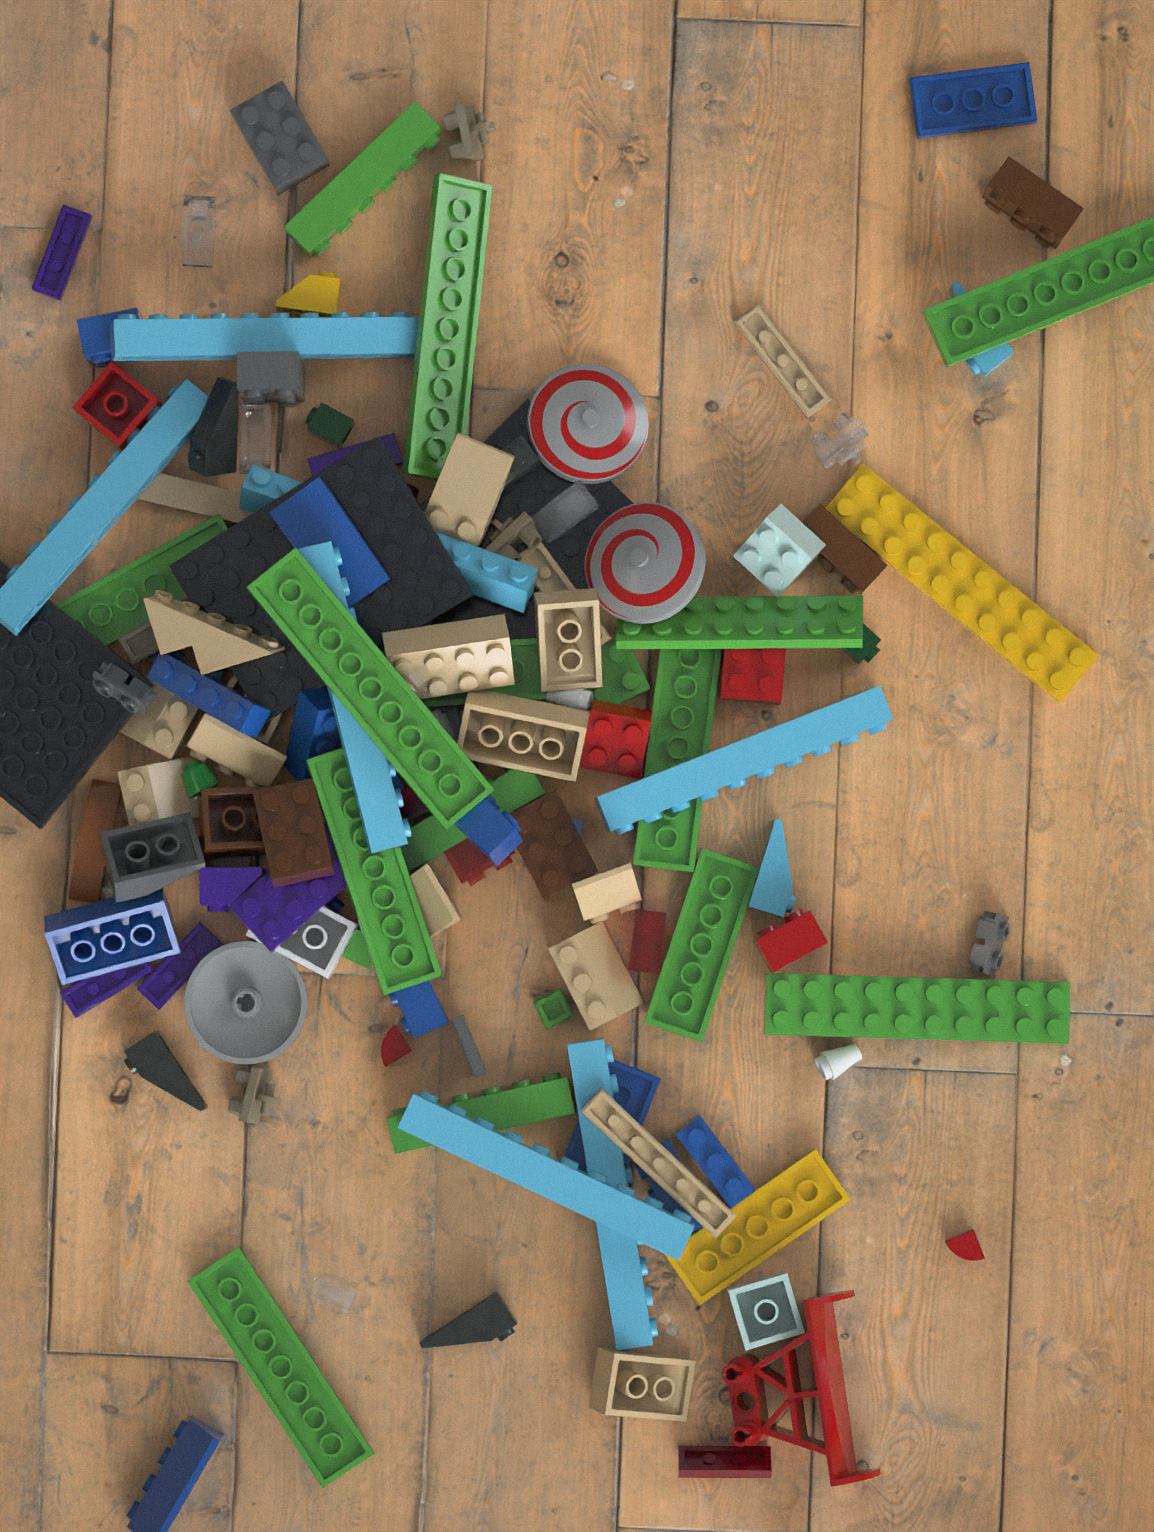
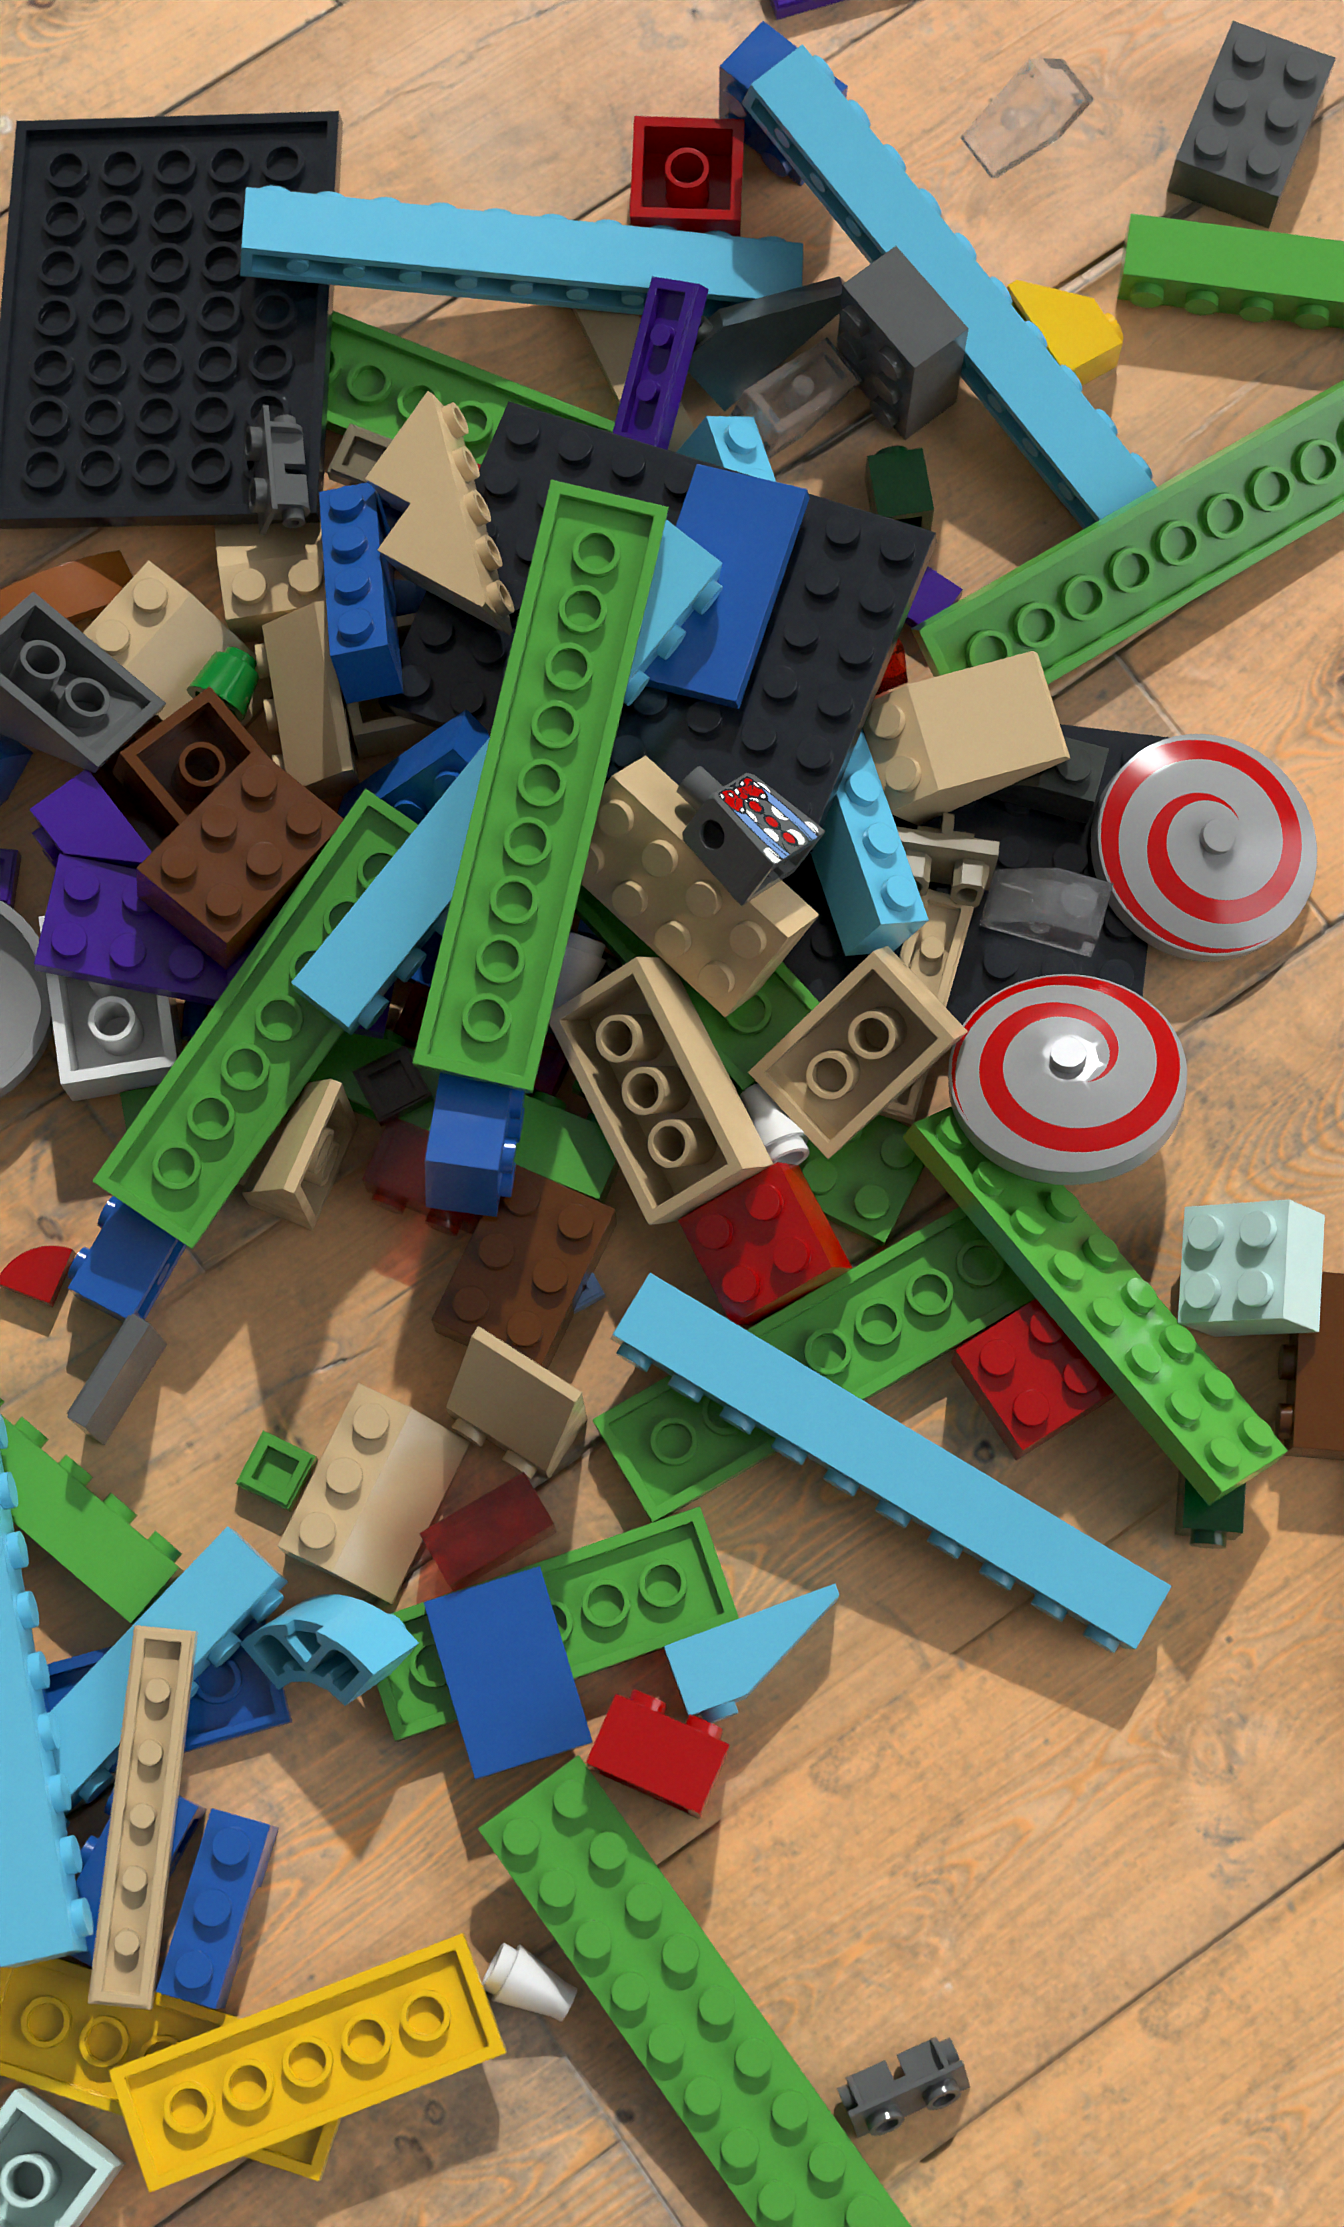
camera: 55 degrees right, 10 degrees down
(198, 486) = (660, 361): none -> dark purple tile
(432, 841) = (392, 1086): none -> dark brown tile
(450, 619) = (745, 832): none -> dark grey torso
(645, 1039) = (331, 1644): none -> medium azure brick
(710, 976) = (508, 1673): none -> blue tile
(803, 1169) = (306, 2062): none -> yellow plate

